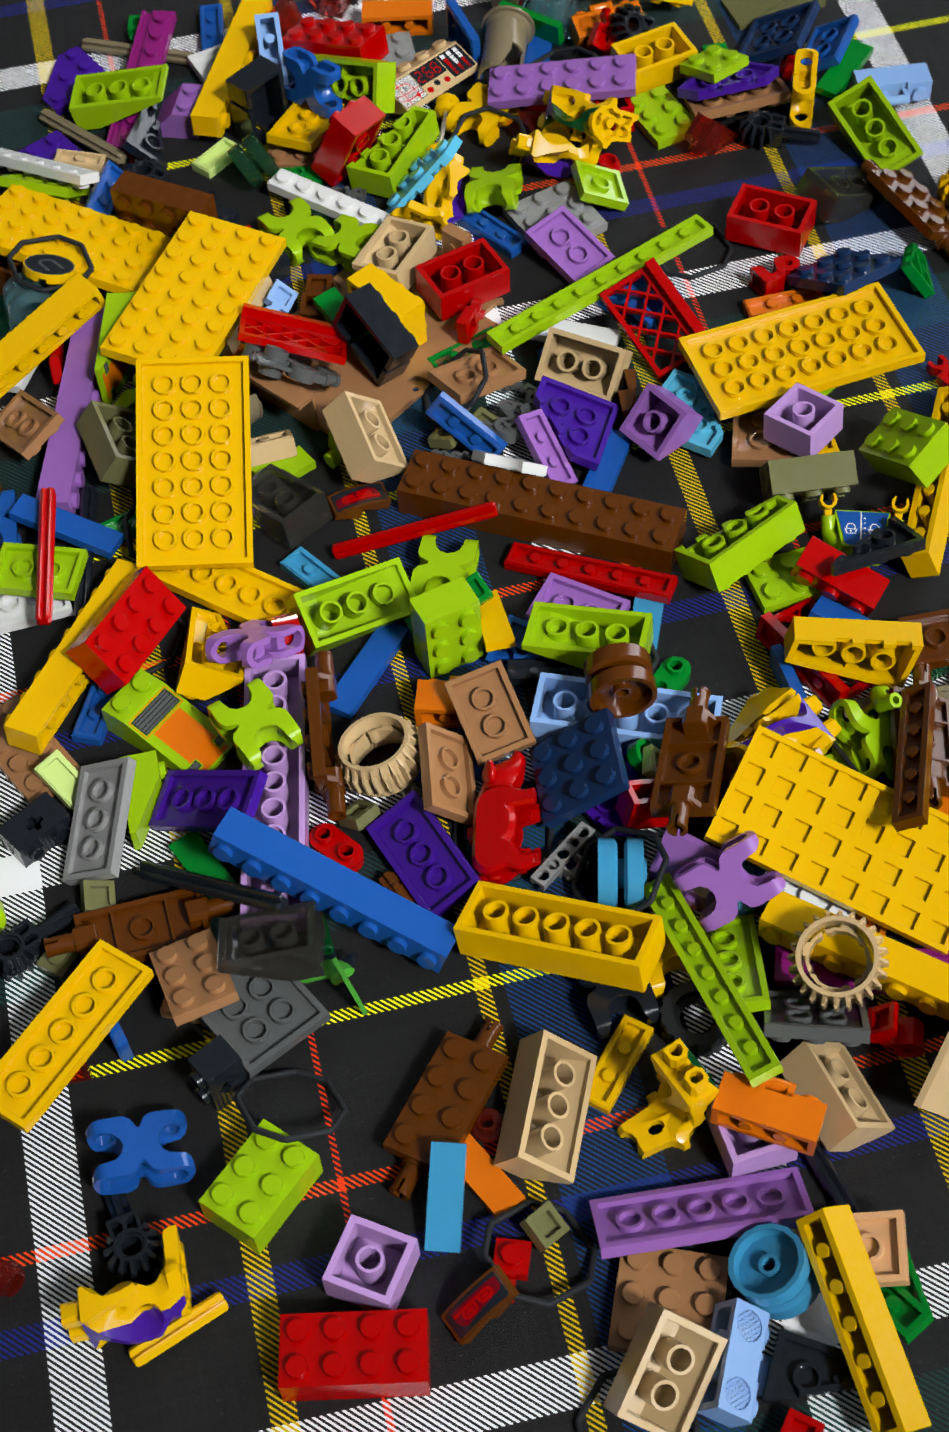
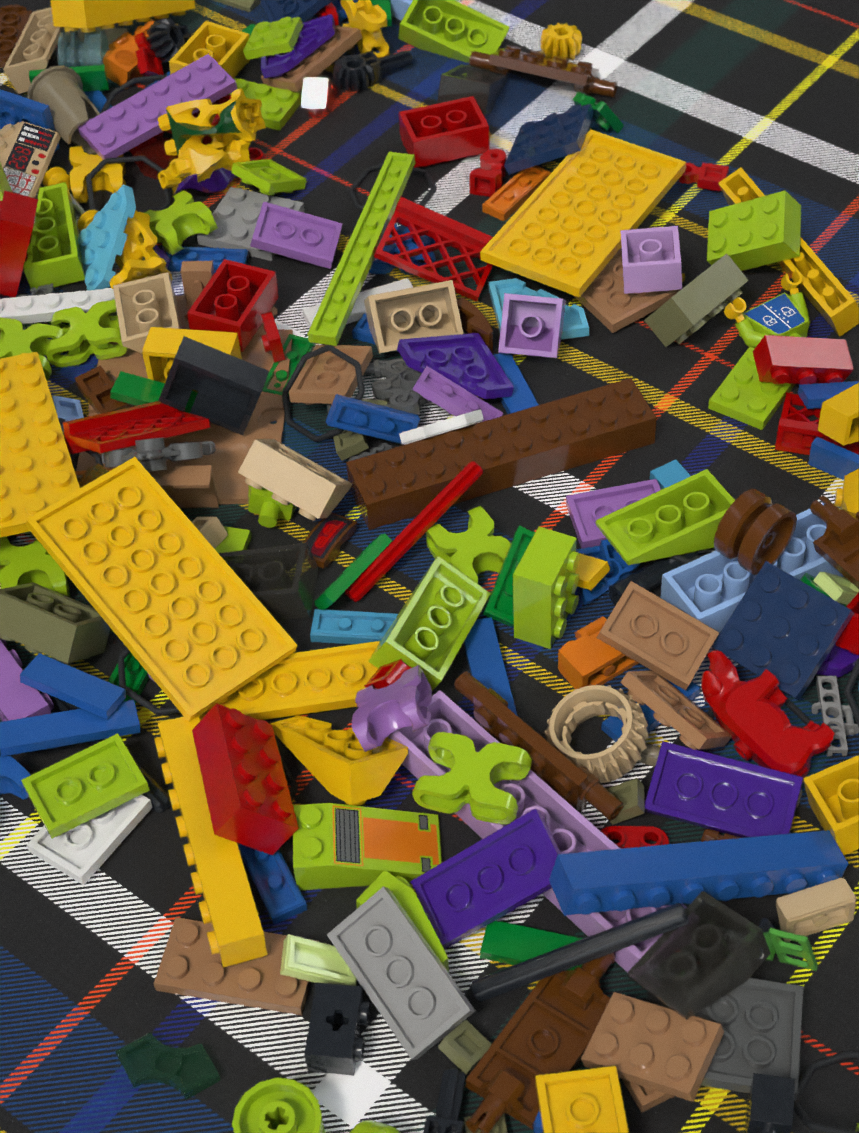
camera: 40 degrees left, 5 degrees down
(45, 556) = (87, 764): red axle -> none
(91, 499) = (73, 686): none -> blue tile
(329, 538) = (352, 572): none -> green tile
(401, 974) = (816, 908): none -> tan slope
(592, 572) = (594, 476): red tile -> none
(741, 544) = (702, 382): lime wedge -> none
(879, 547) = (820, 313): black wing -> none

